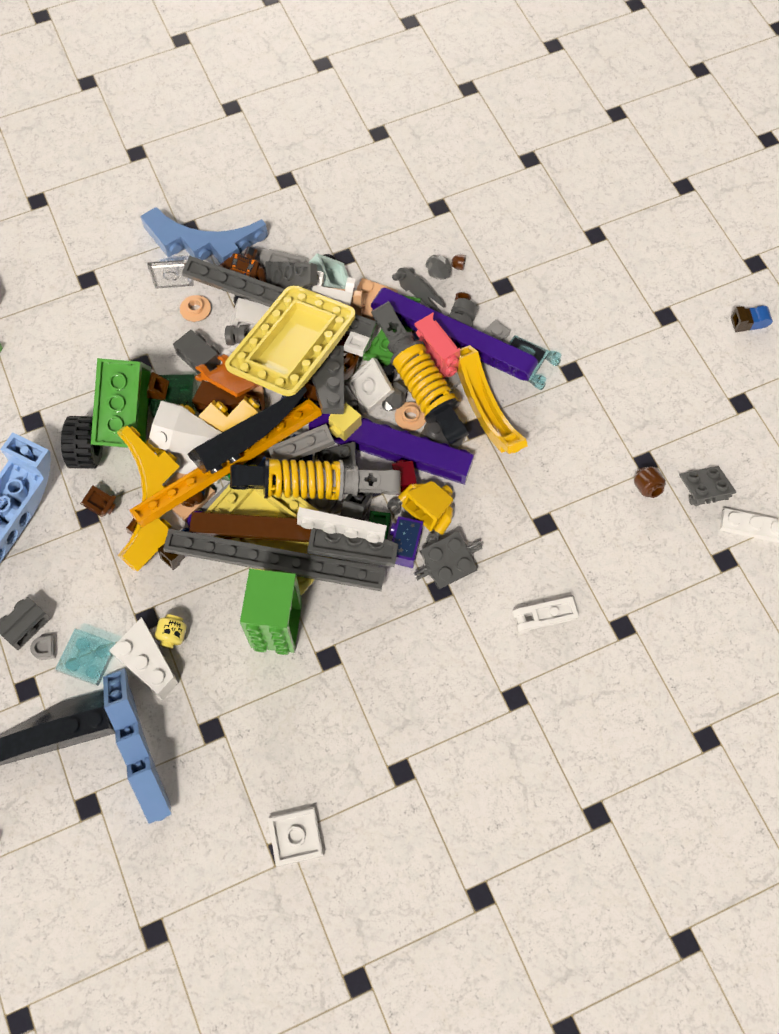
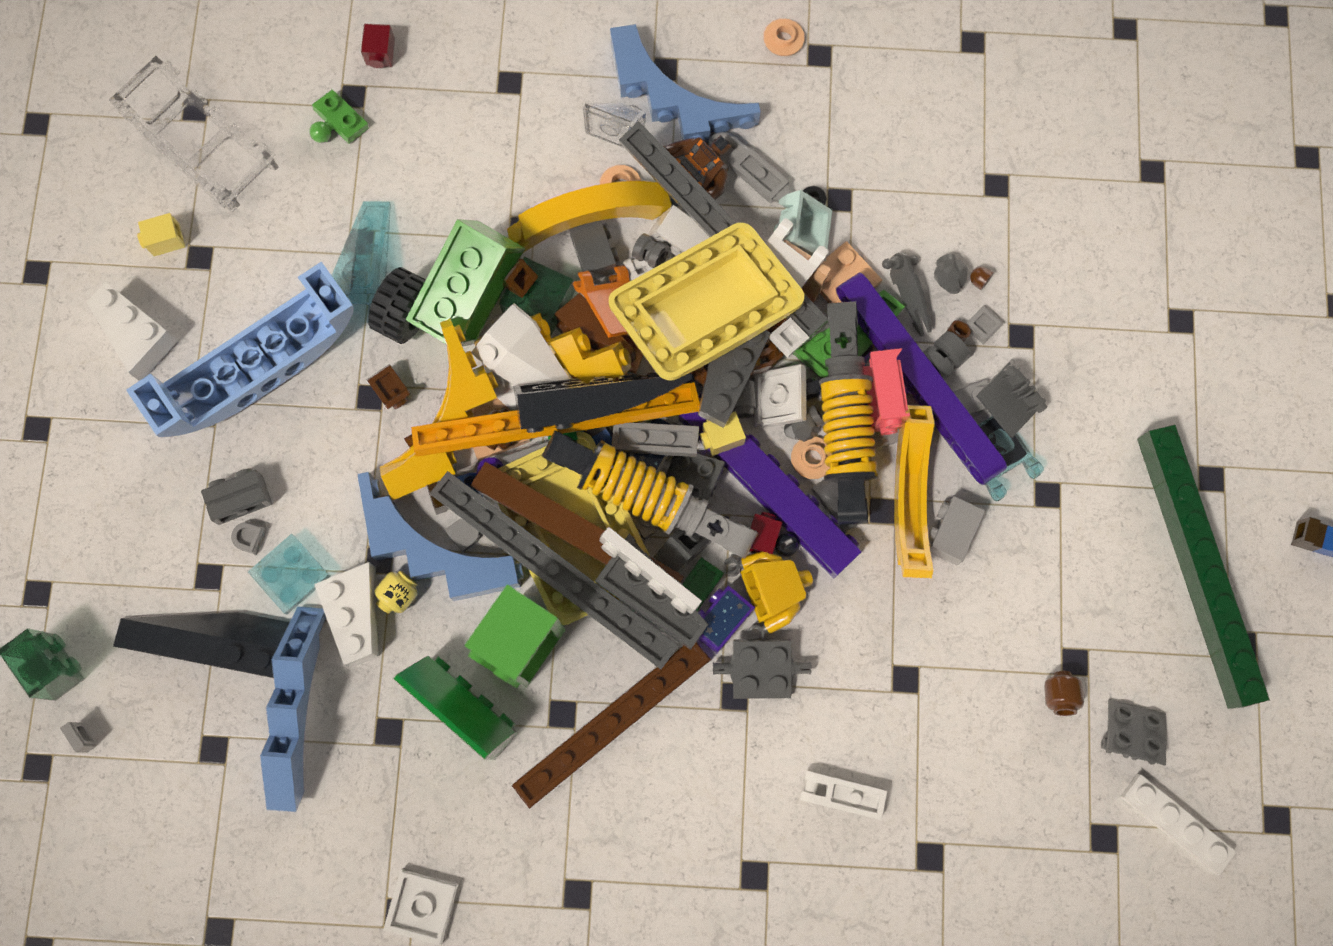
camera: 25 degrees right, 10 degrees up
(38, 422) = (365, 253): none -> clear light blue wedge
(153, 595) = (393, 537): none -> medium blue arch
(181, 323) = (589, 205): none -> yellow arch
(199, 572) = (463, 534): none -> light grey tile
(253, 684) = (457, 706): none -> green slope
(257, 184) = (783, 47): none -> light nougat piece
(291, 274) = (751, 204): dark grey wing -> none
(364, 648) = (609, 724): none -> reddish brown tile
(426, 478) = (790, 549): none -> black hinge
(476, 289) = (984, 324): none -> light grey tile
(518, 323) = (1011, 399): none -> dark grey hinge
(526, 415) = (955, 530): none -> light grey brick
(691, 367) = (1202, 568): none -> dark green brick

